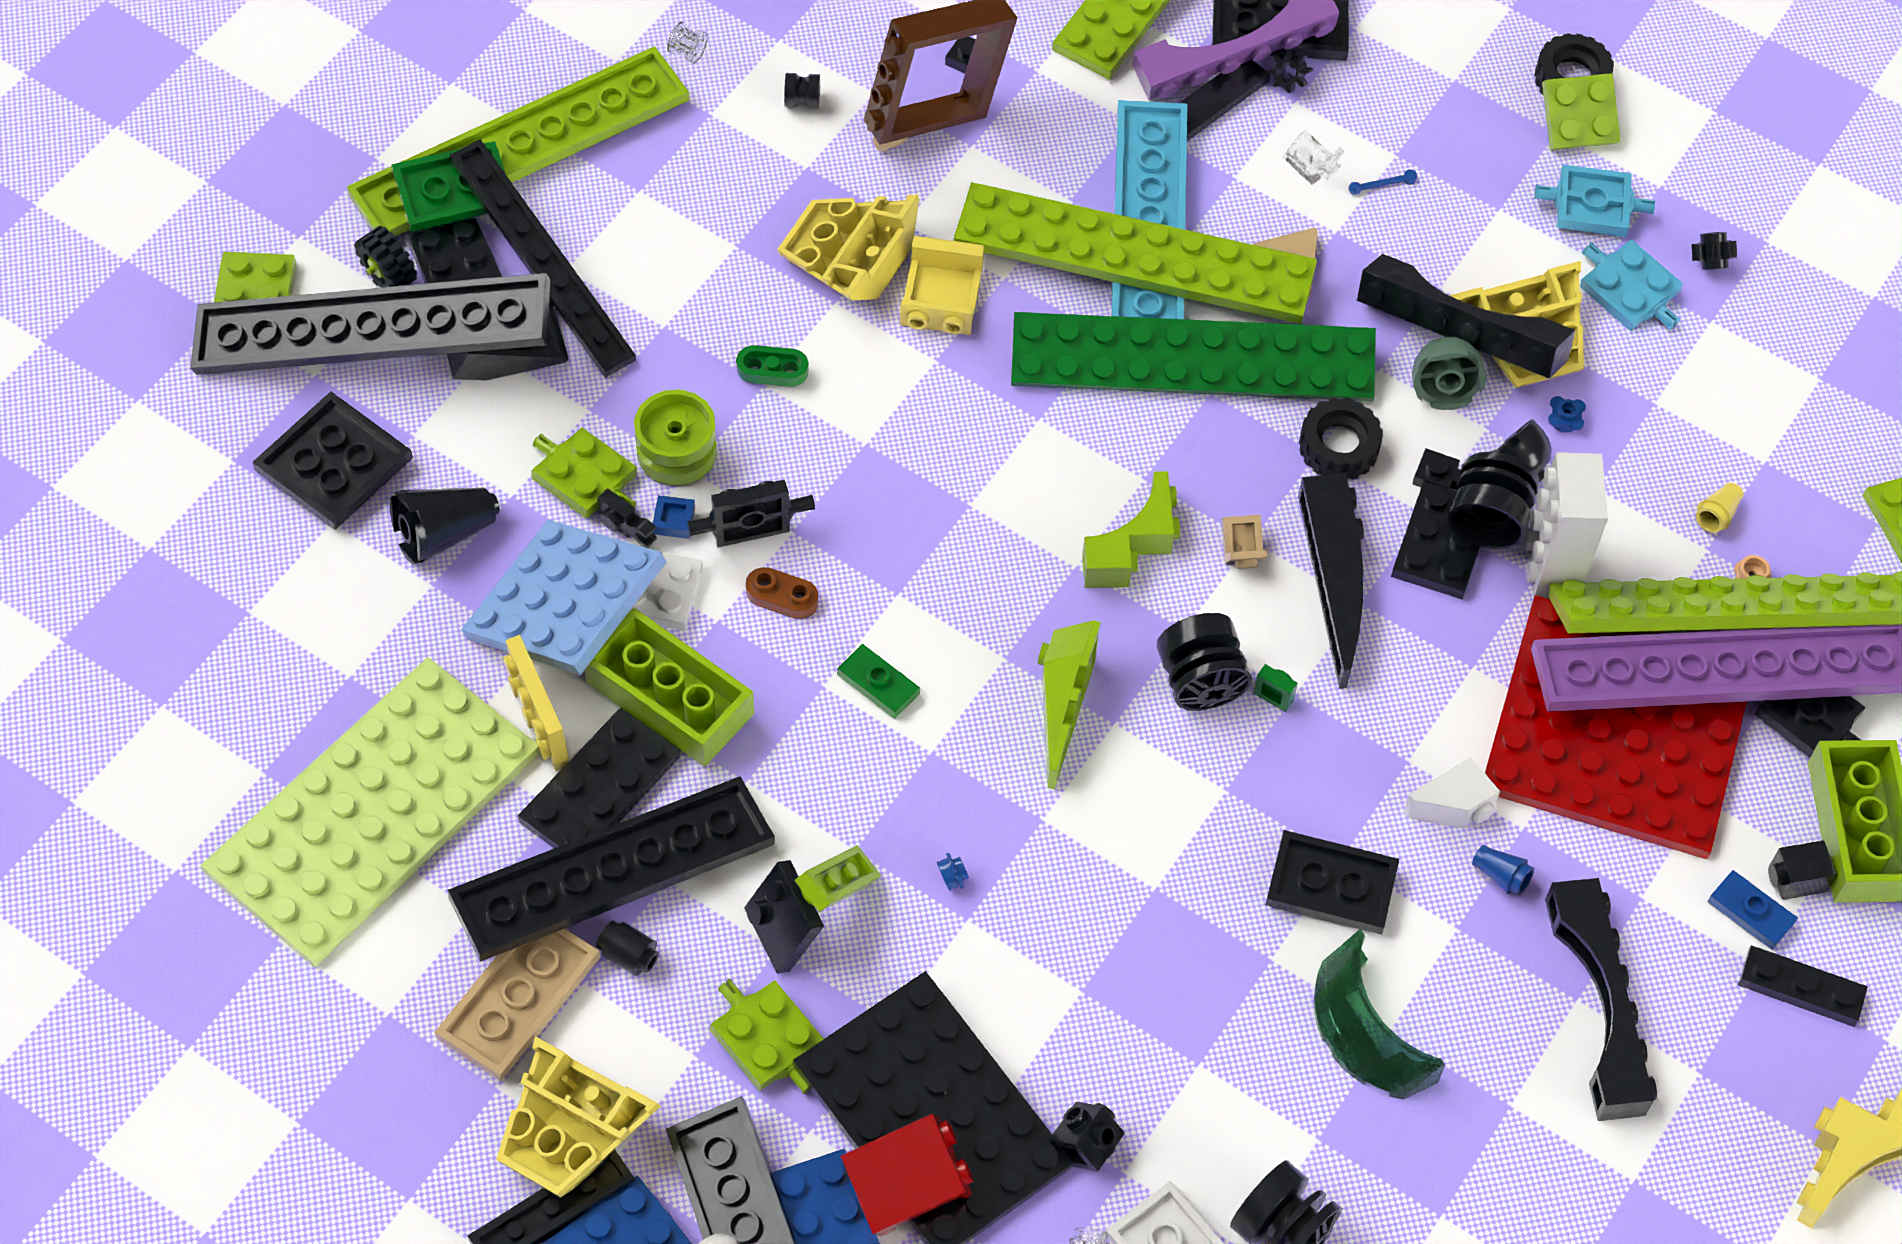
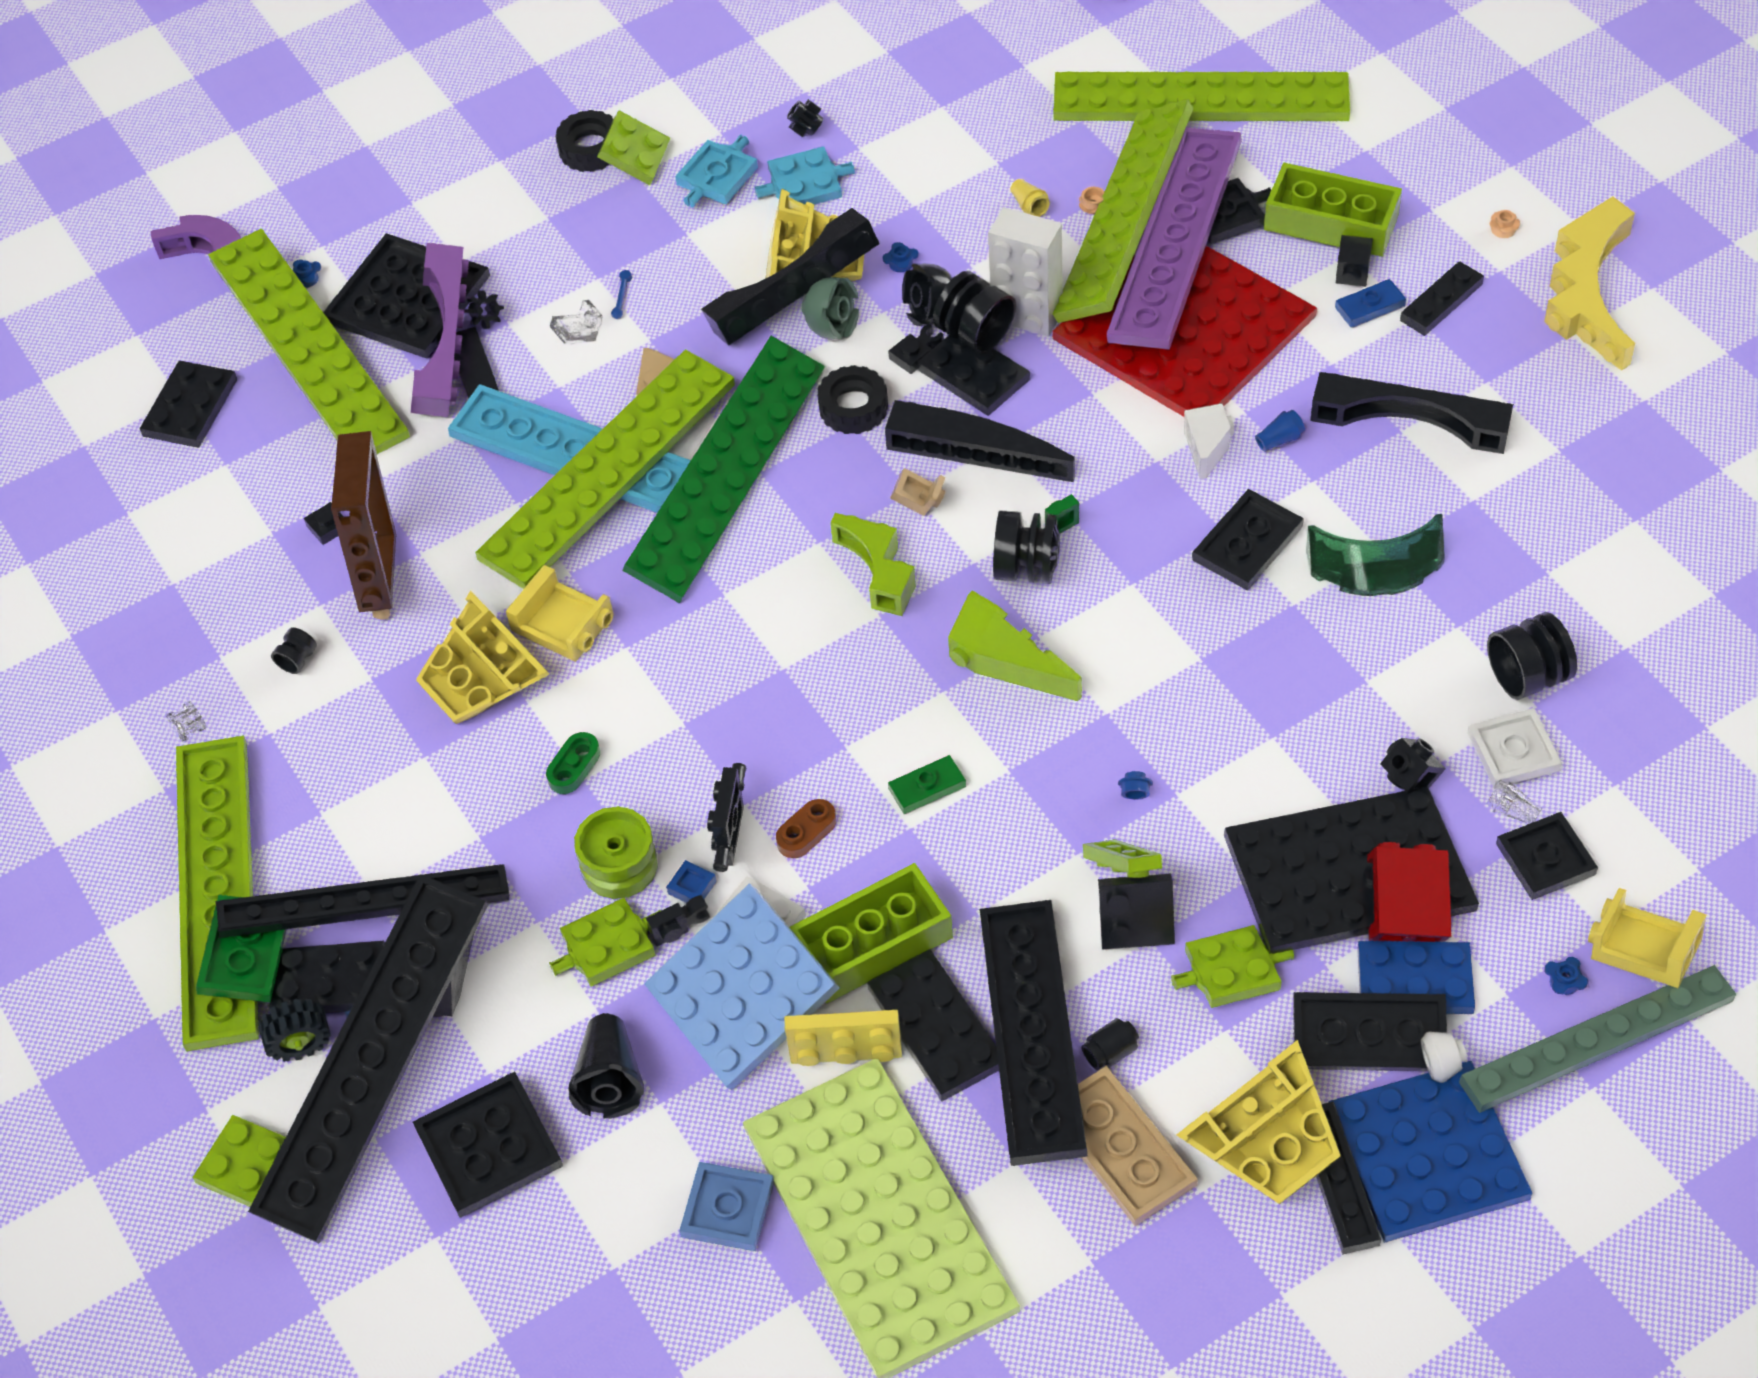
camera: 60 degrees left, 5 degrees down
(334, 676) = (726, 1206): none -> medium blue plate

